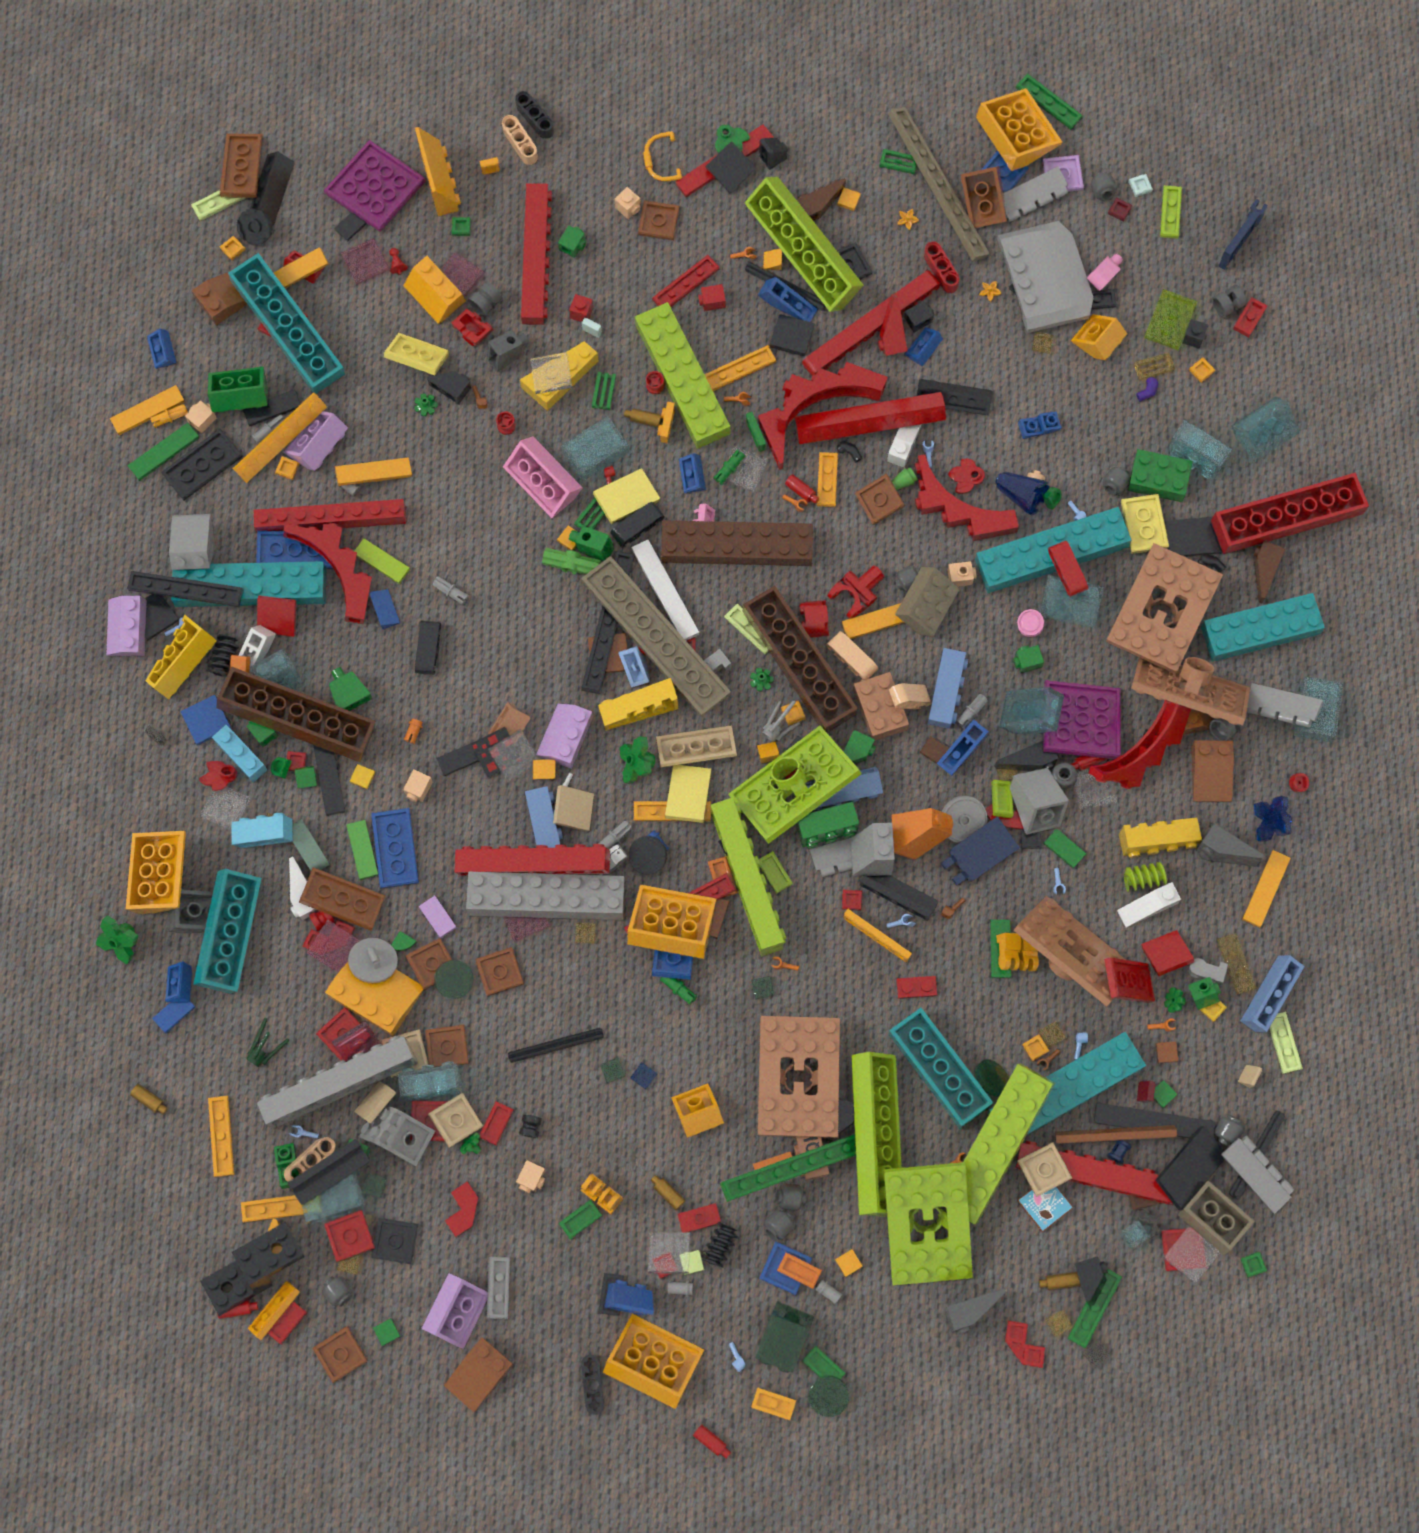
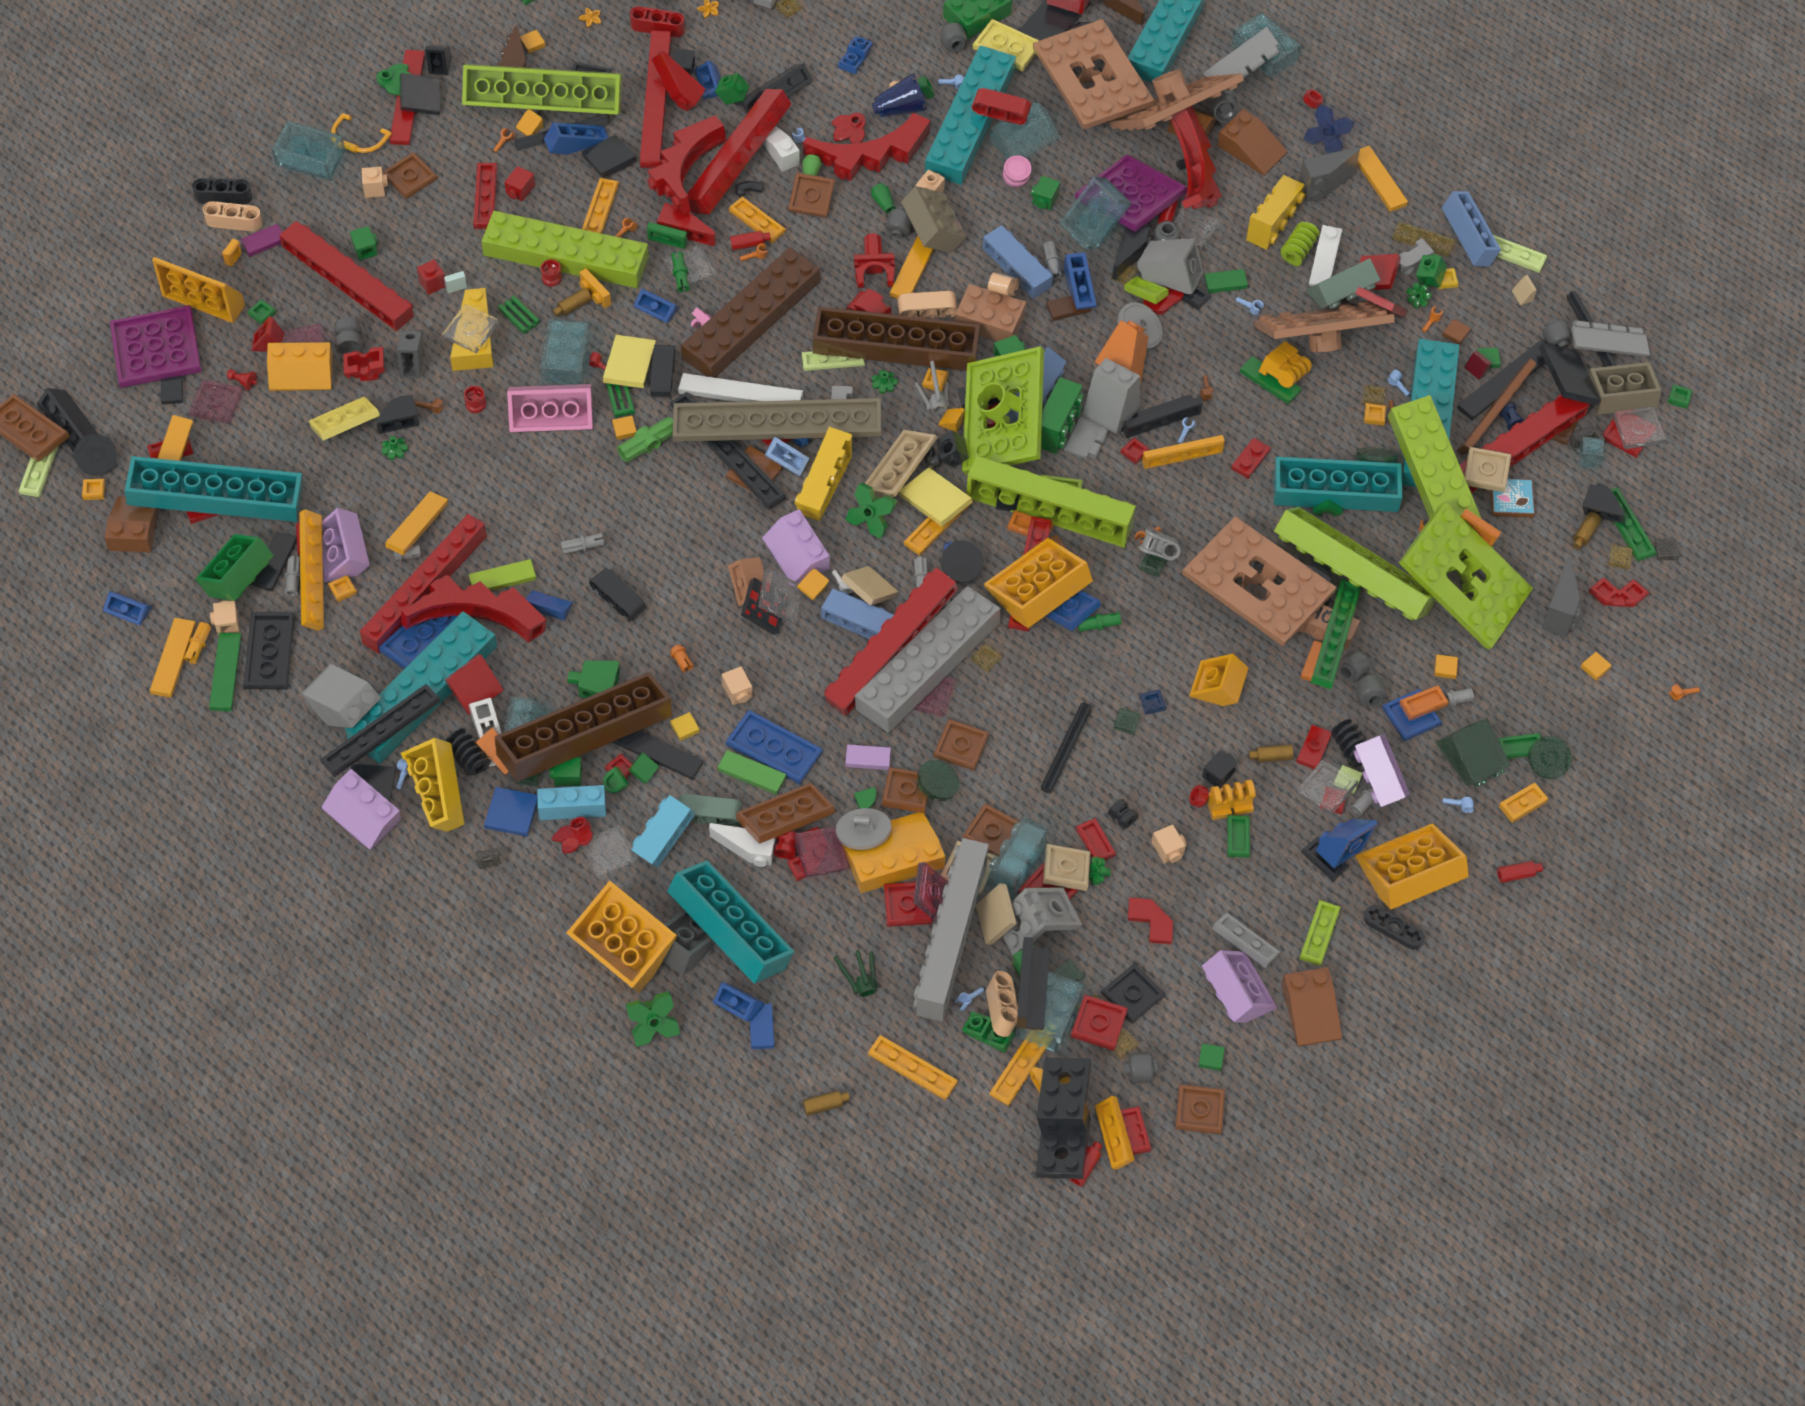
camera: 55 degrees left, 15 degrees down
(440, 250) = (267, 333): none -> red slope
(457, 759) = (740, 641): black tile -> none
(519, 175) = (262, 240): none -> magenta tile
(546, 1335) = (1320, 933): none -> lime tile
(588, 1167) = (1198, 796): none -> red tile
(592, 543) = (648, 408): green torso -> none
(615, 139) = (308, 150): none -> clear light blue brick
(623, 1166) = (1219, 769): none -> black brick
(708, 1284) = (1381, 770): none -> slope
(717, 767) = (931, 459): none -> black arm
(737, 773) = (952, 449): none -> black brick
(778, 983) = (1158, 544): none -> light grey piece
(911, 1071) = (1328, 507): none -> green tile
(922, 550) = (882, 196): none -> green cone
(924, 368) = (732, 88): none -> green brick
(942, 1373) = (1596, 666): none -> light orange tile
(968, 1450) = (1677, 692): none -> orange hand
(972, 1204) = (1484, 529): none -> orange tile
(981, 851) = (1176, 334): dark blue tile -> none
(1128, 938) = (1344, 284): none -> sand green slope

